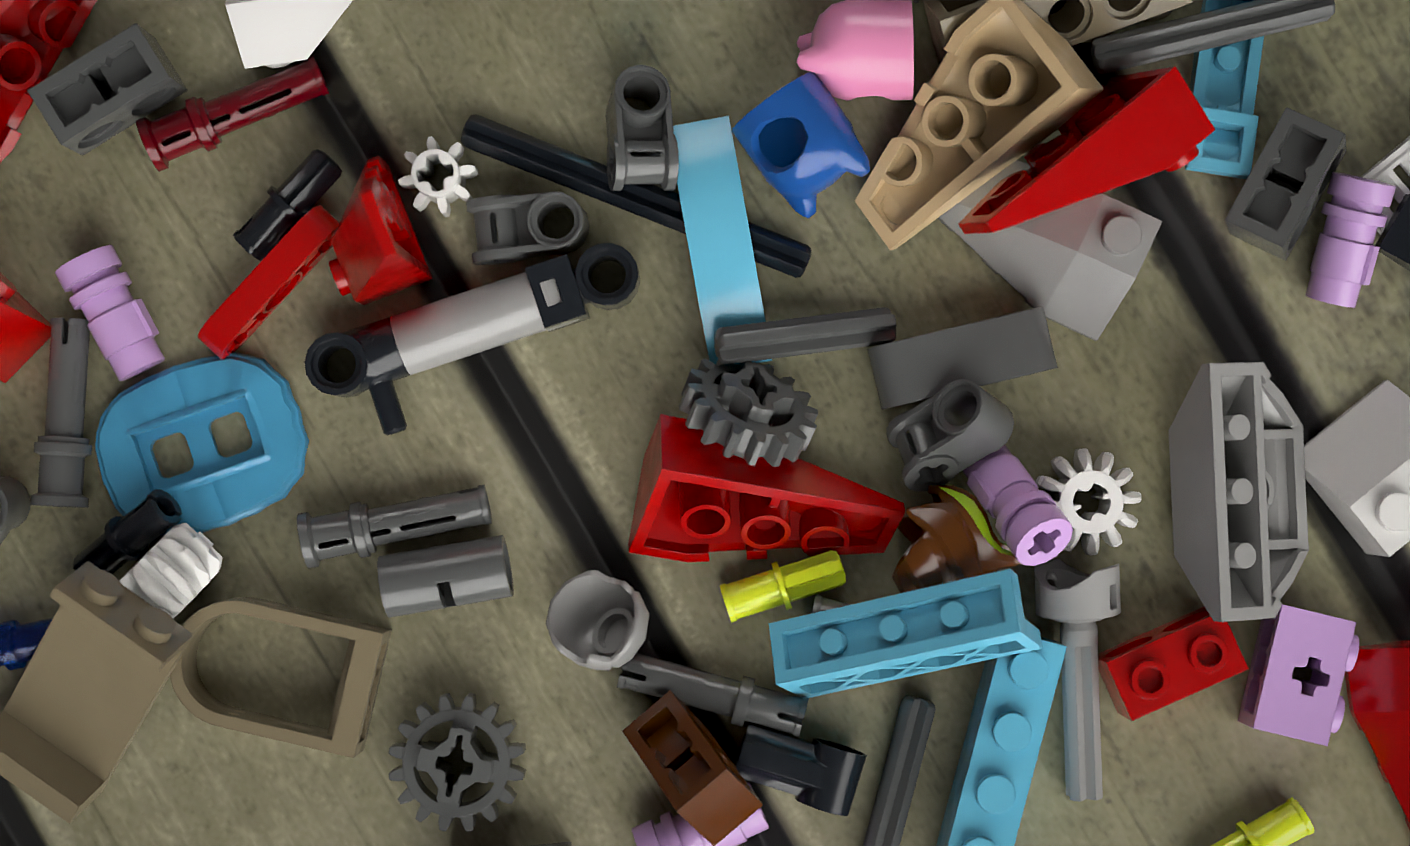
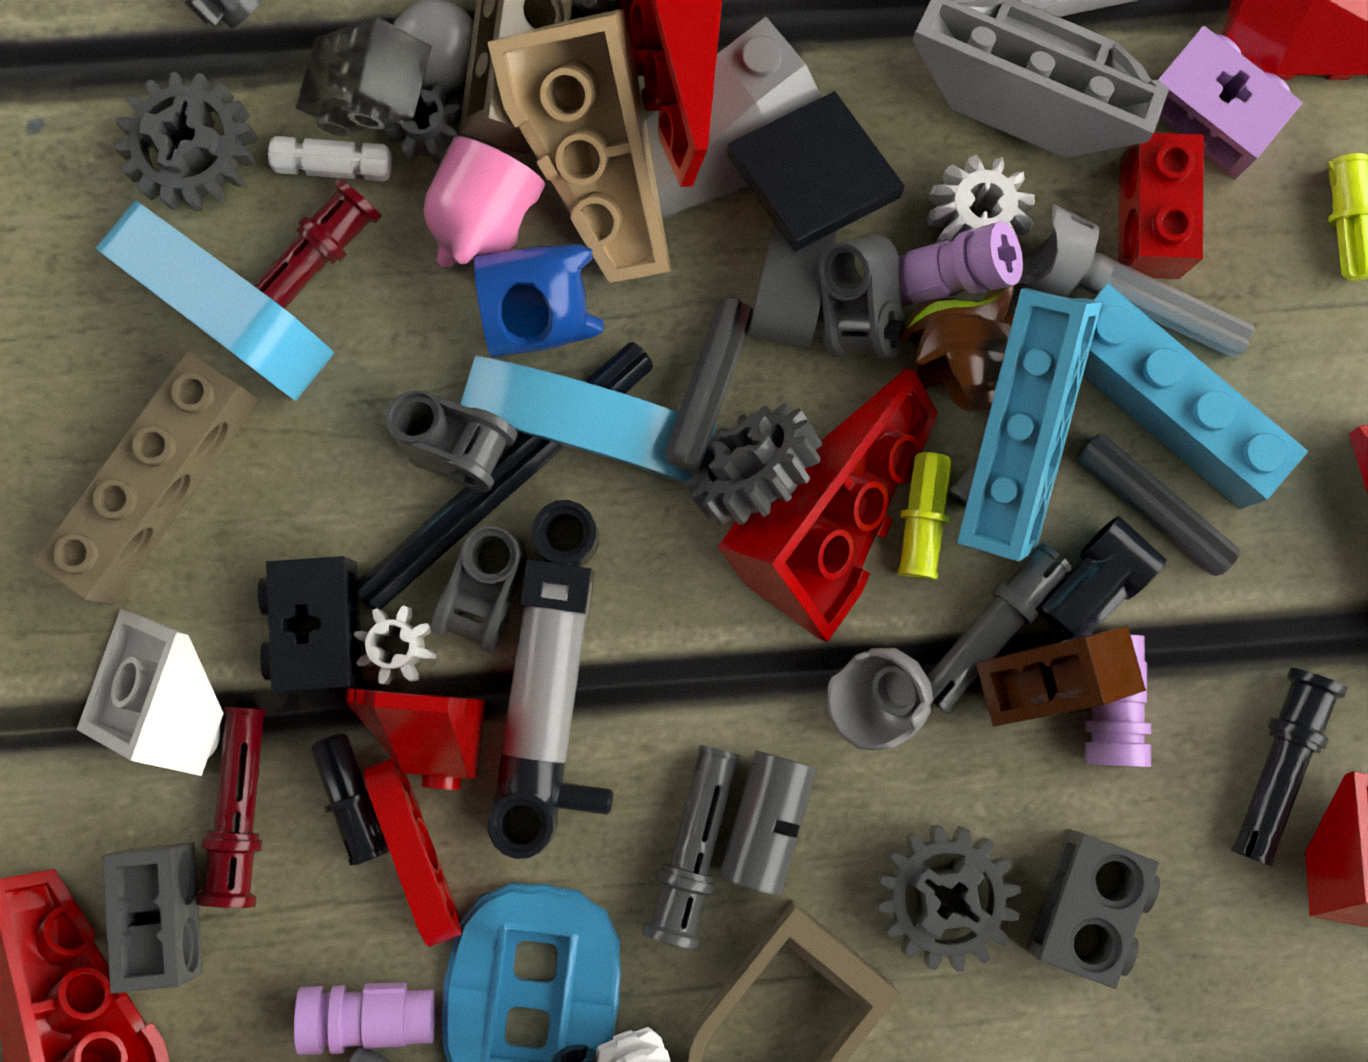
camera: 70 degrees left, 5 degrees down
(395, 119) = (327, 655): none -> black brick
(1041, 335) = (815, 171): none -> black tile

